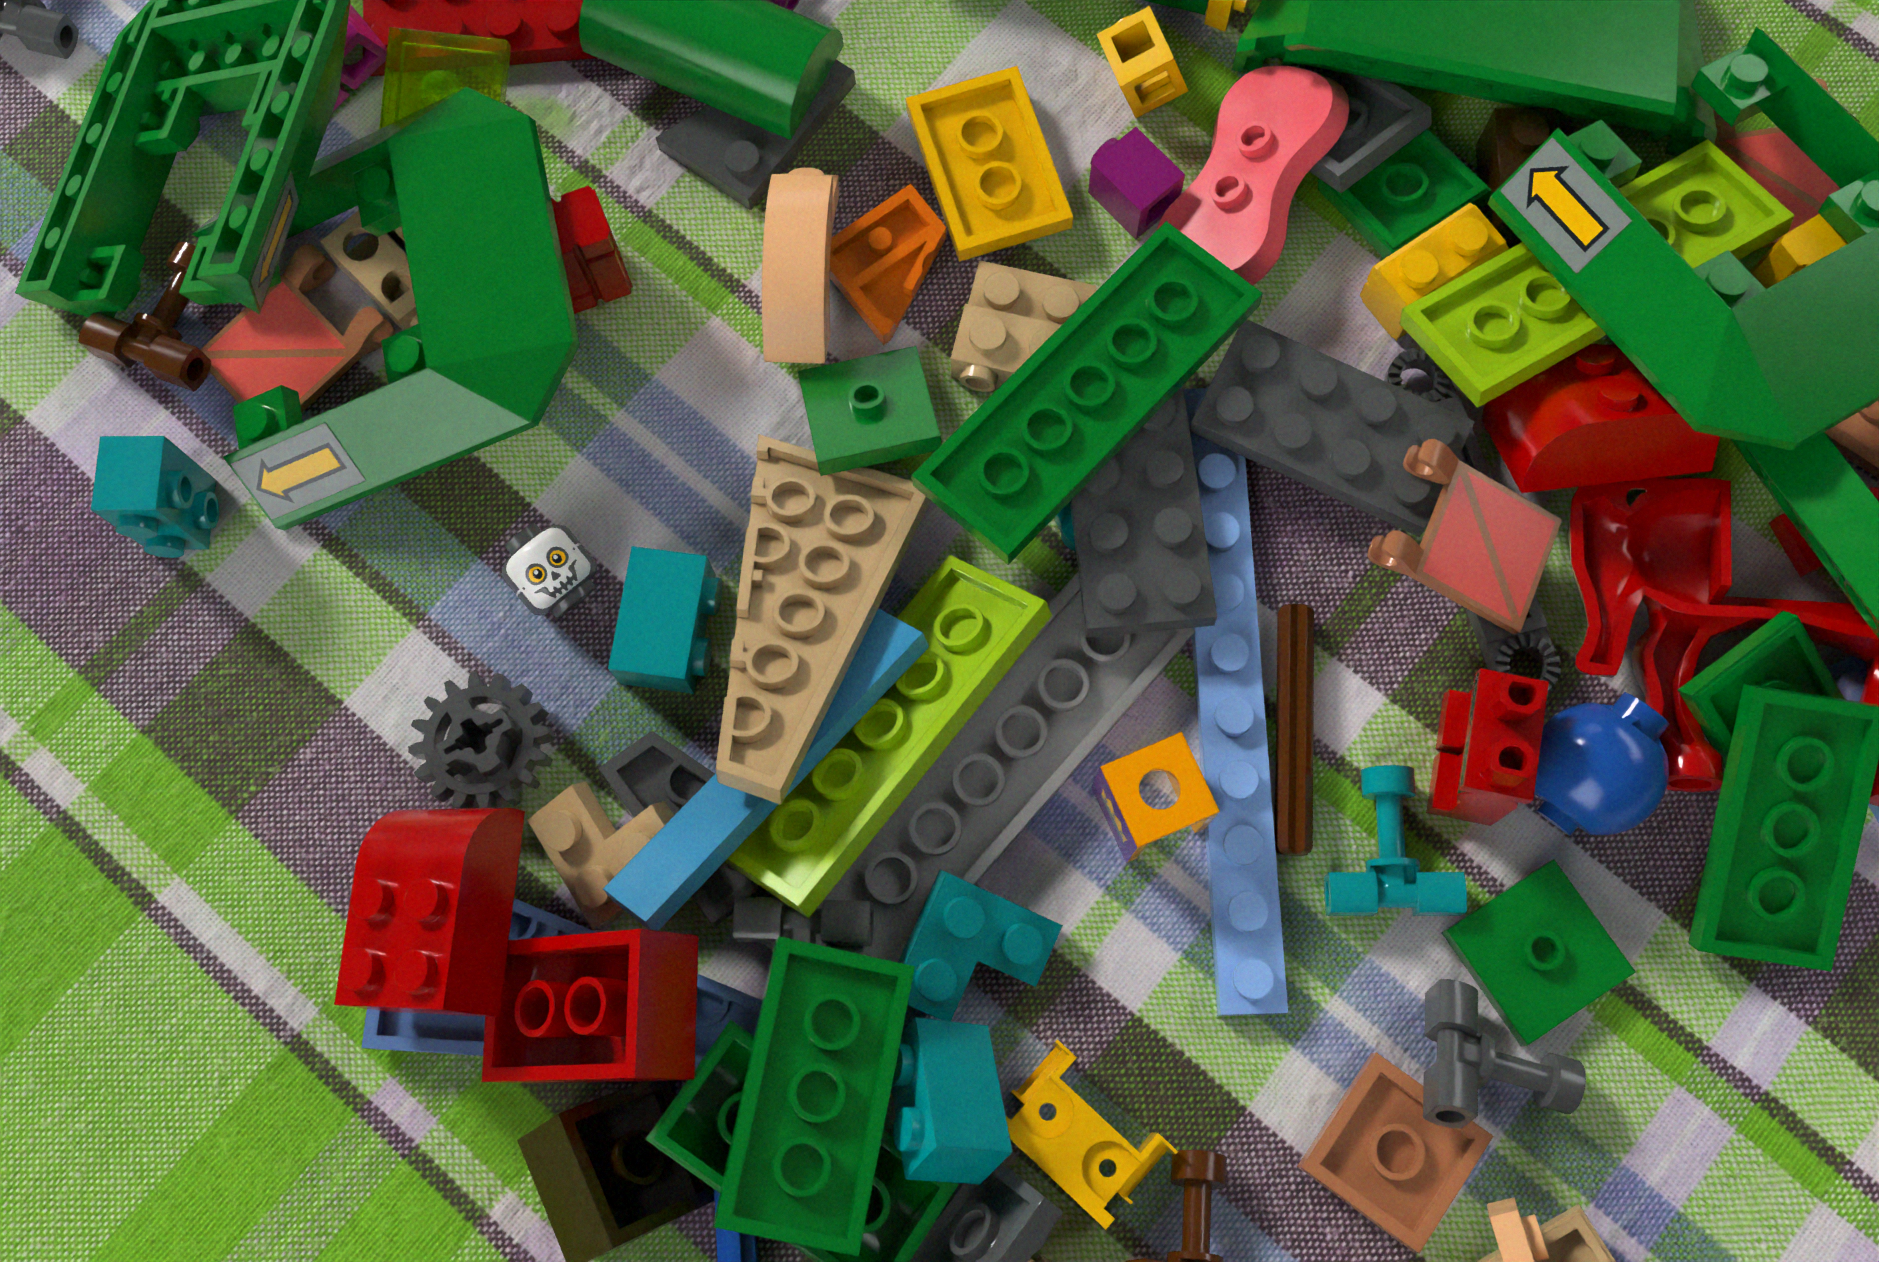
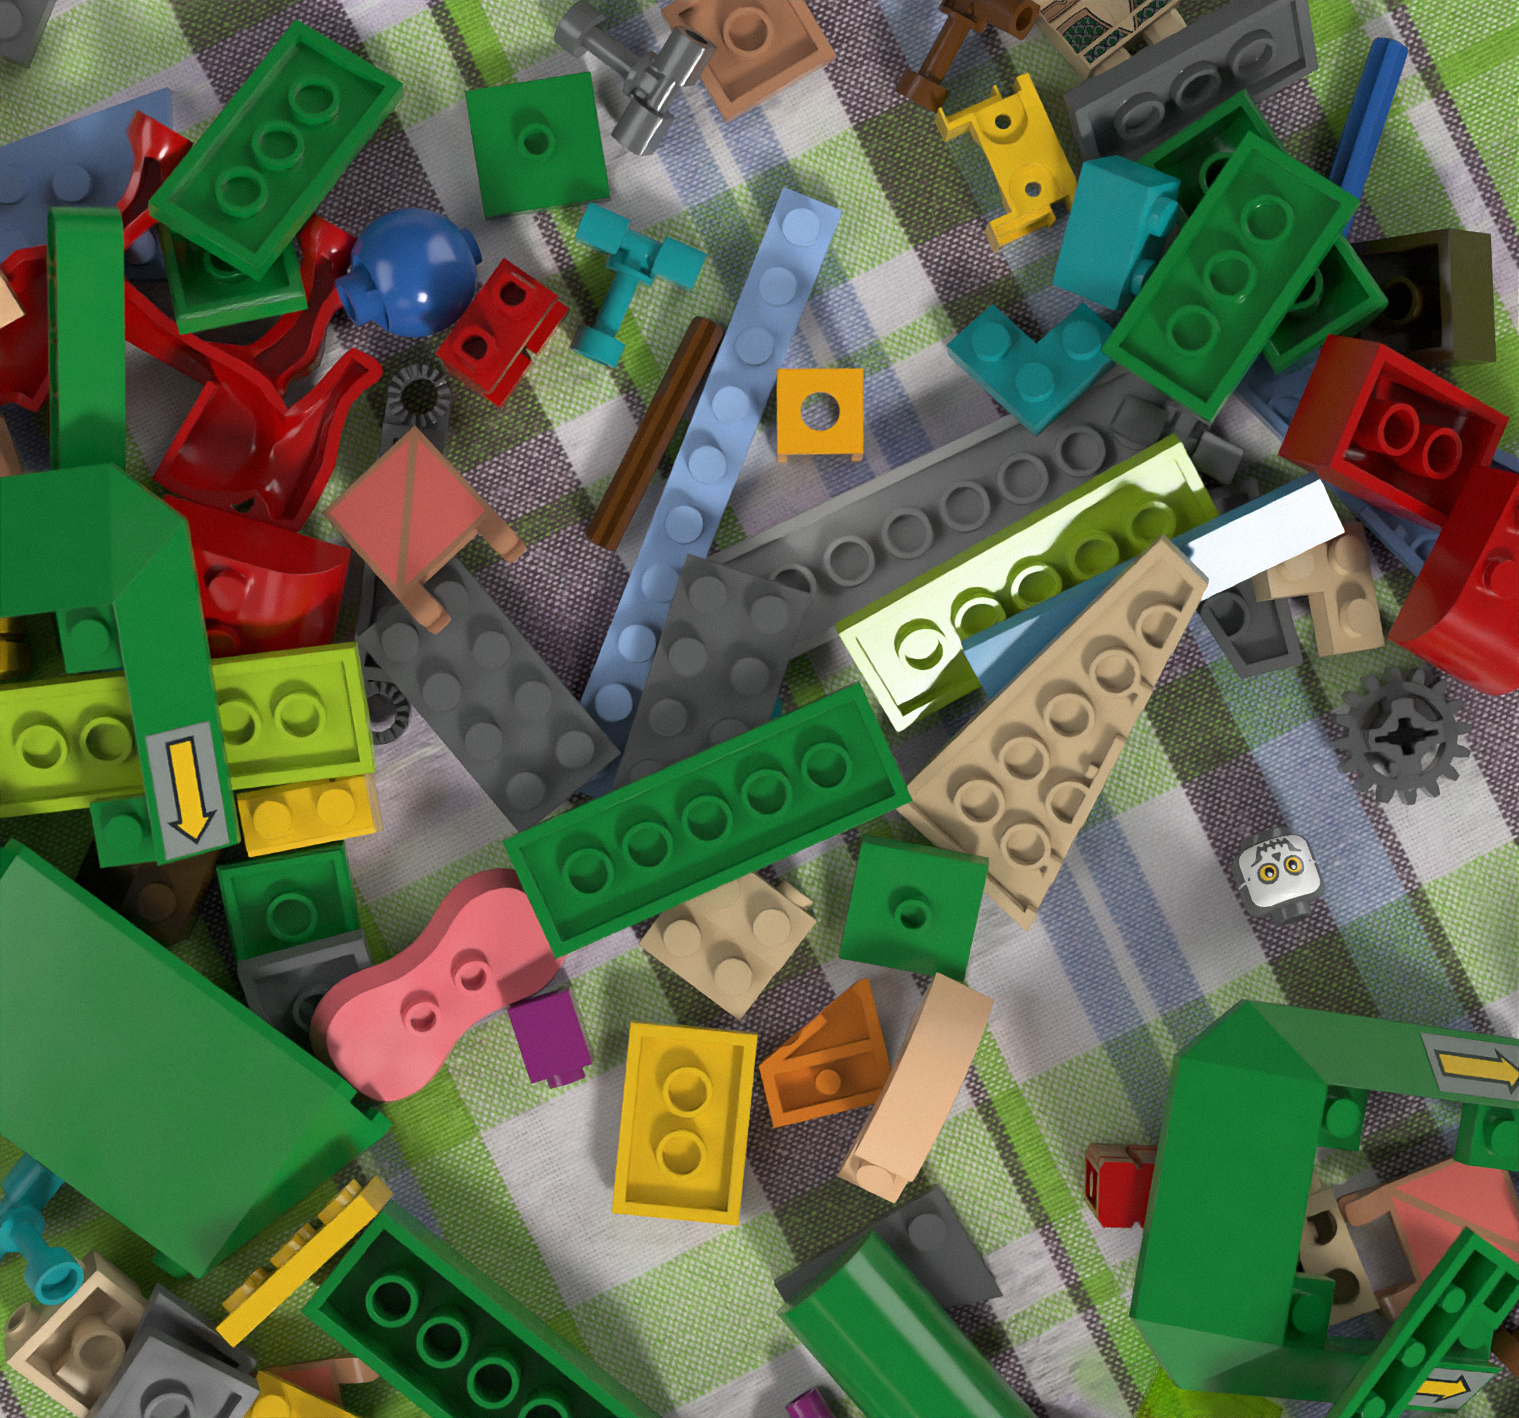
camera: 160 degrees left, 15 degrees up
(665, 620) = (1188, 780): teal brick -> none
(1142, 62) = (499, 1183): yellow brick -> none

